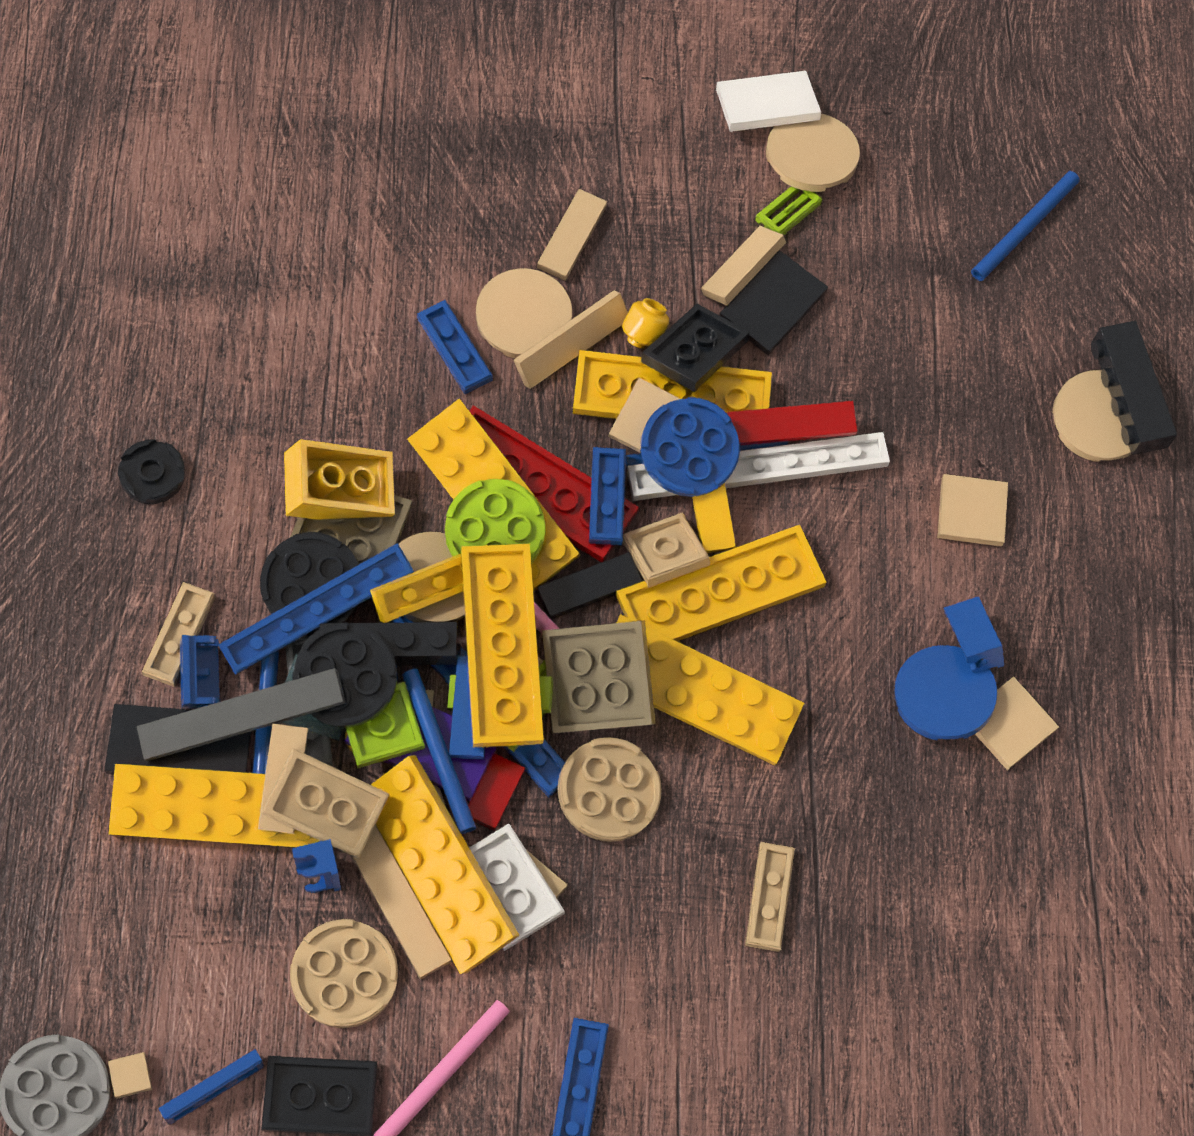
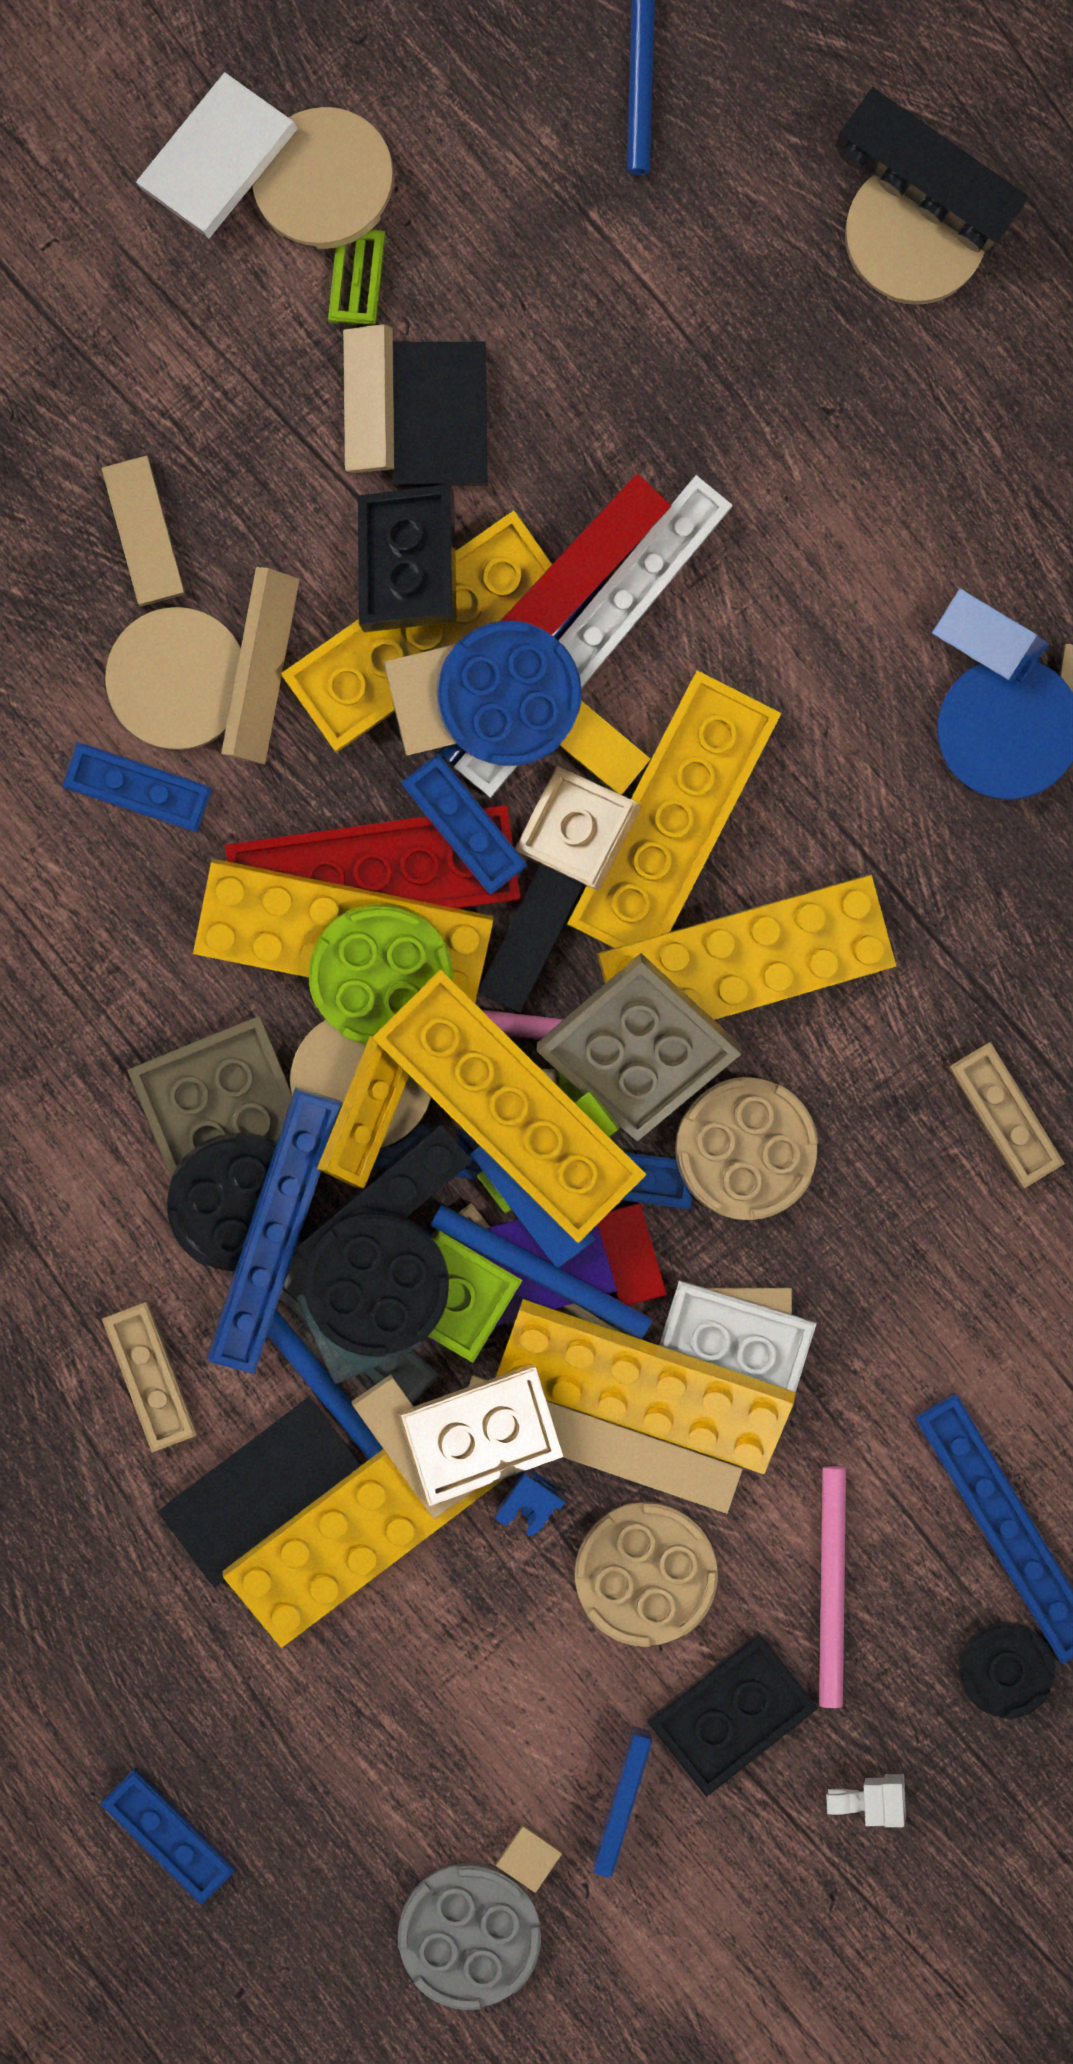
camera: 30 degrees left, 20 degrees up
(199, 671) = (215, 1403): blue hinge -> none
(241, 714) = (308, 1418): dark grey tile -> none
(338, 481) = (167, 1070): yellow slope -> none
(645, 322) = (325, 575): yellow head -> none
(972, 510) = (866, 478): tan tile -> none

